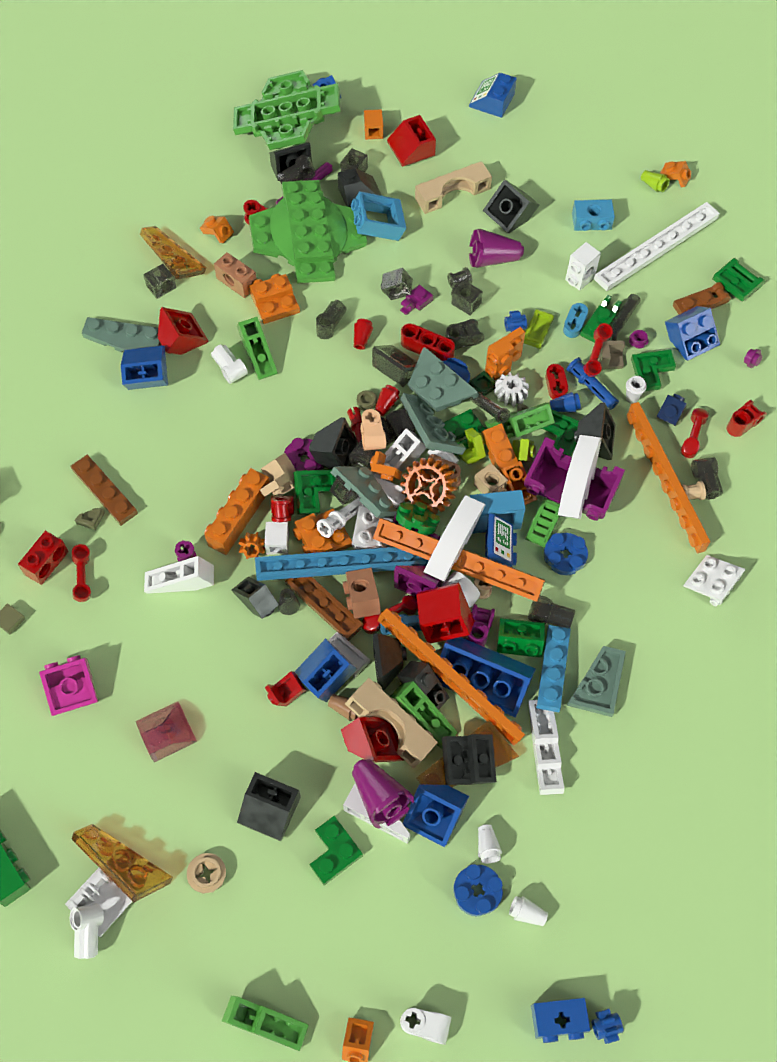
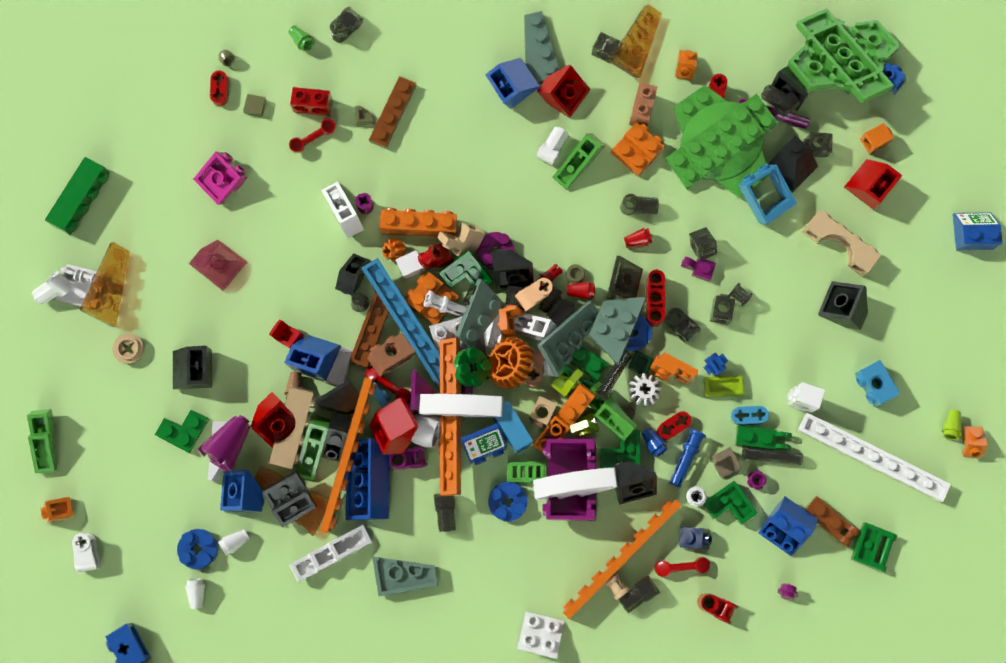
camera: 65 degrees right, 15 degrees up
(493, 249) = (786, 311): magenta cone -> none
(521, 637) = (413, 495): green bracket -> none
(553, 669) = (398, 533): dark azure plate -> none
(601, 334) = (696, 450): red bar -> none

